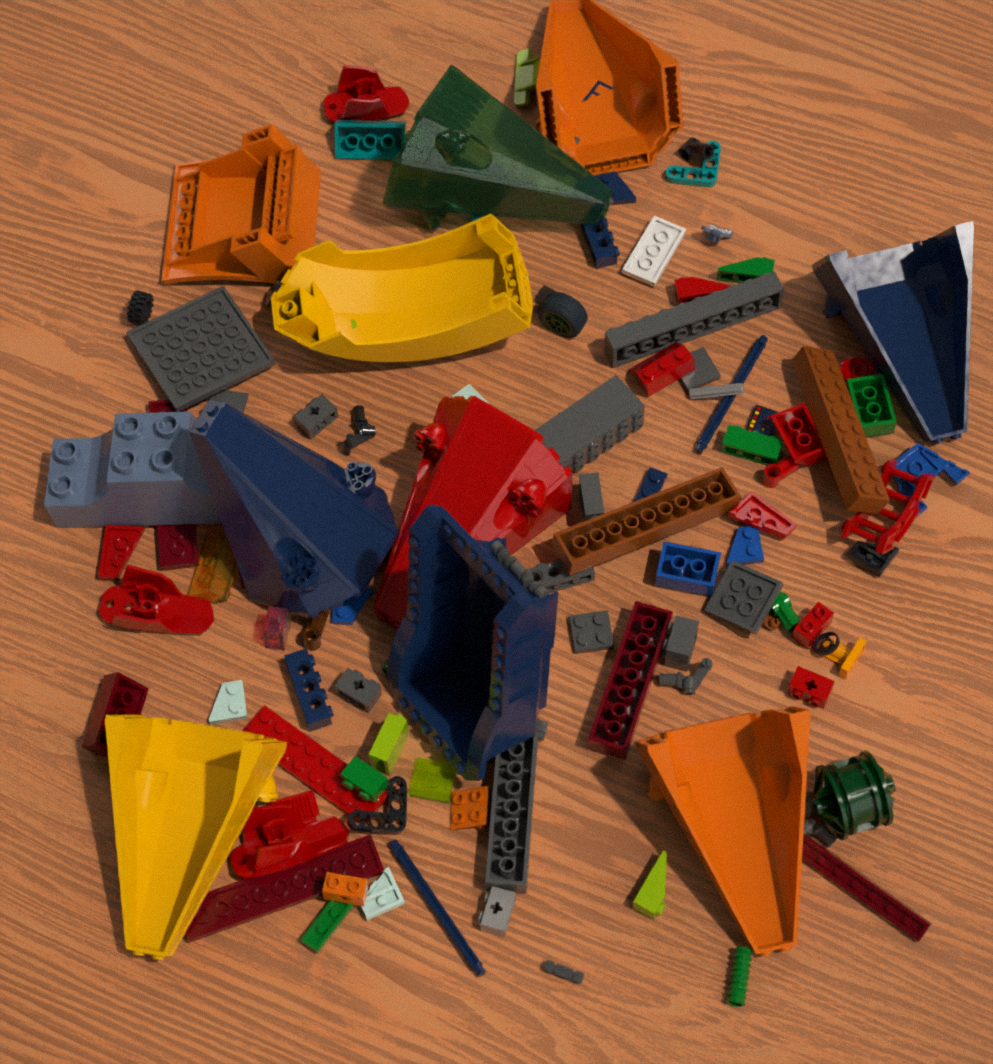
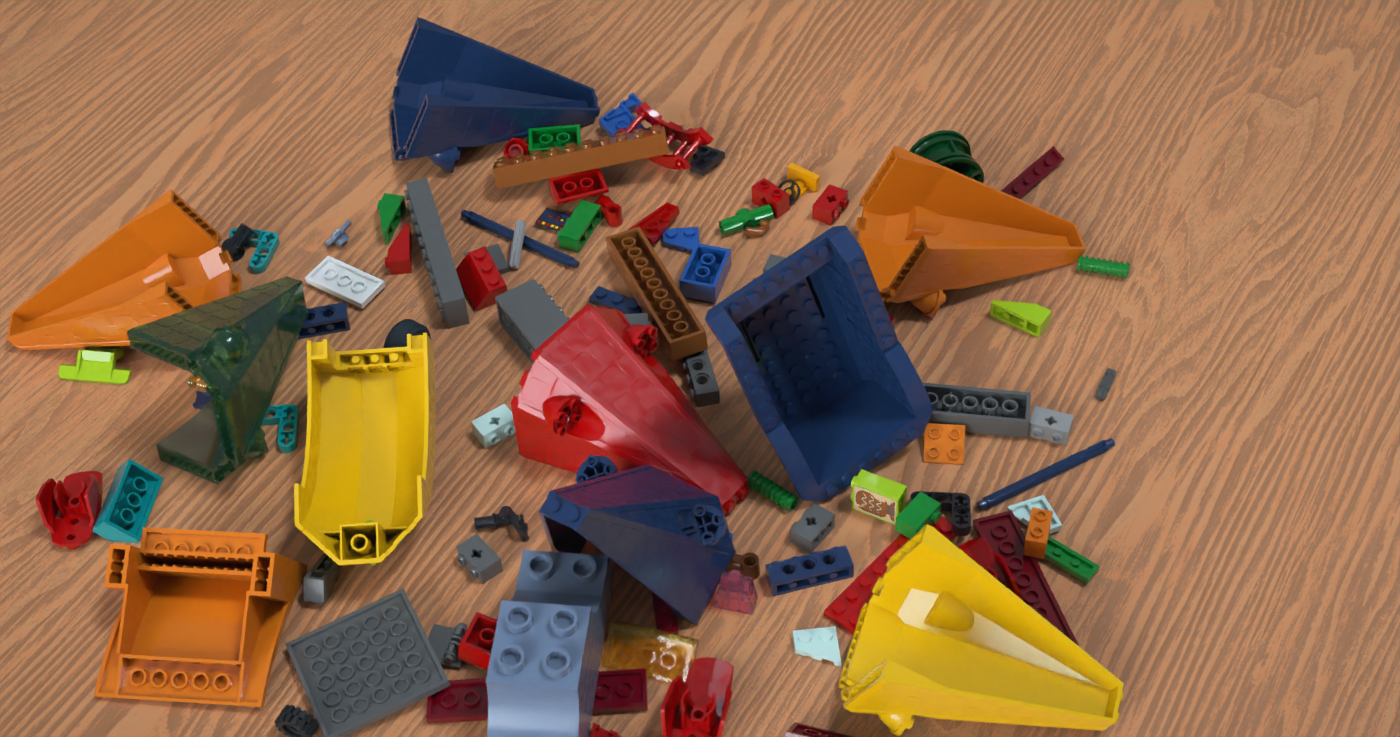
camera: 85 degrees left, 15 degrees down
(432, 780) = (913, 472): clear neon green tile -> none
(744, 597) = (742, 233): dark grey plate -> none

